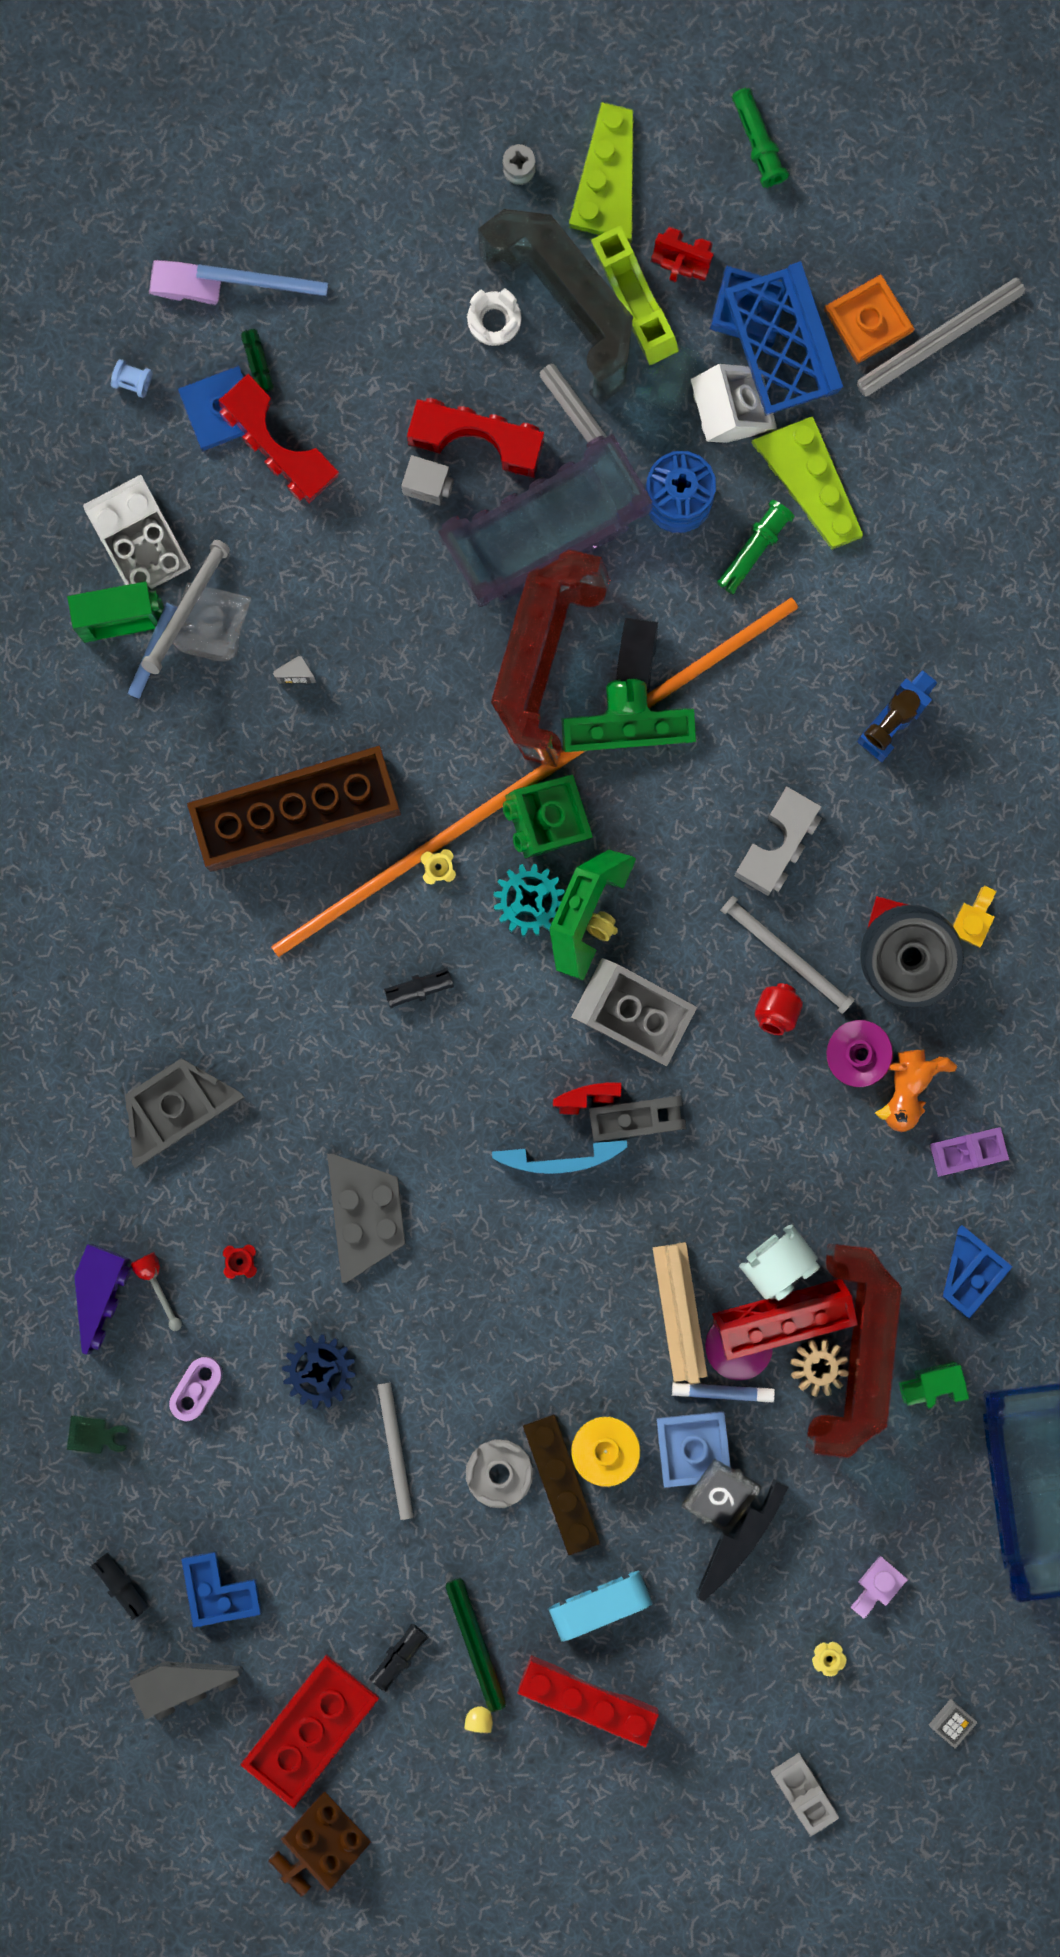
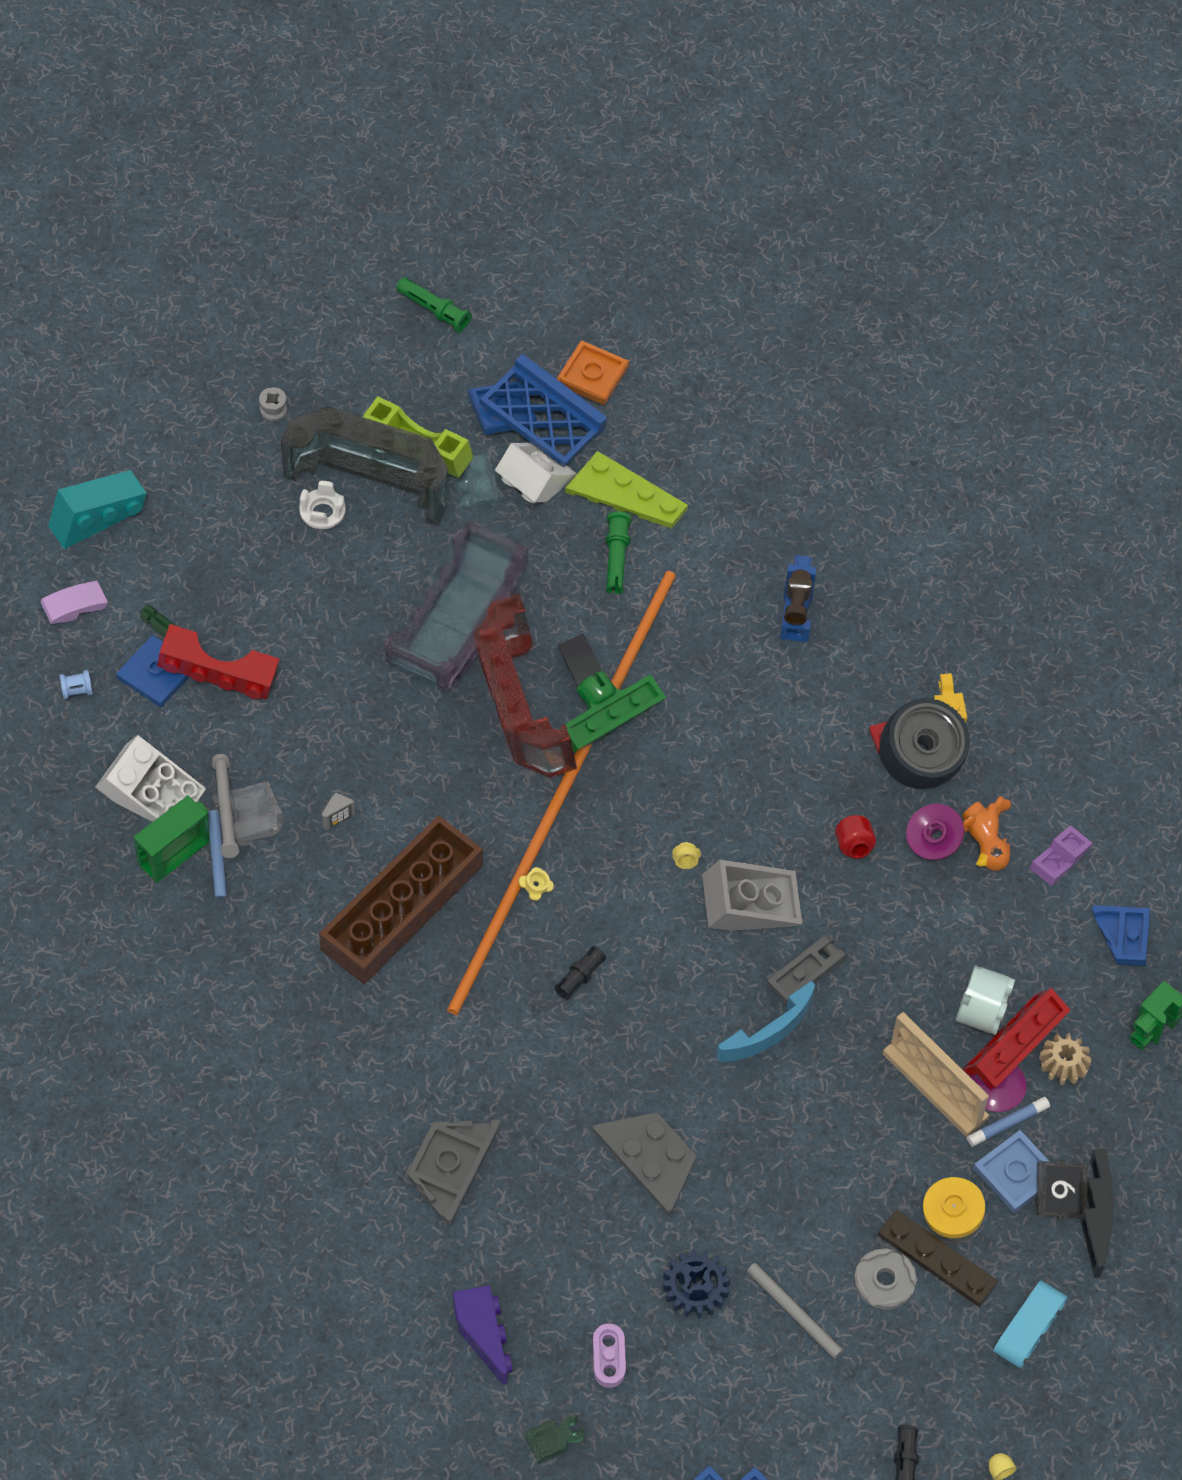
camera: 40 degrees left, 25 degrees down
(148, 1269) = (510, 1290): hinge -> none
(246, 1268) = (580, 1236): red plate -> none
(261, 280) = (132, 570): medium blue bar -> none
(268, 184) = (94, 506): none -> teal wedge
(427, 480) = (347, 634): light grey brick -> none
(437, 425) = (396, 578): red arch -> none
(475, 1645) = (957, 1413): dark green axle -> none
(516, 909) = (629, 874): teal gear -> none
(547, 816) = (593, 803): green plate -> none
(570, 403) = (418, 533): light grey axle -> none
(576, 1099) = (753, 979): red slope -> none
(577, 906) = (674, 878): green slope -> none
(588, 1703) = (1045, 1398): red arch -> none
(606, 180) = (339, 376): lime wing -> none
(677, 510) = (547, 539): blue wheel -> none
(682, 257) = (432, 400): red hips -> none
(765, 868) = (773, 706): light grey arch -> none
(787, 954) = (835, 800): light grey bar -> none
(870, 1354) = (1094, 1013): clear red windscreen -> none
(940, 337) = (650, 359): light grey axle -> none

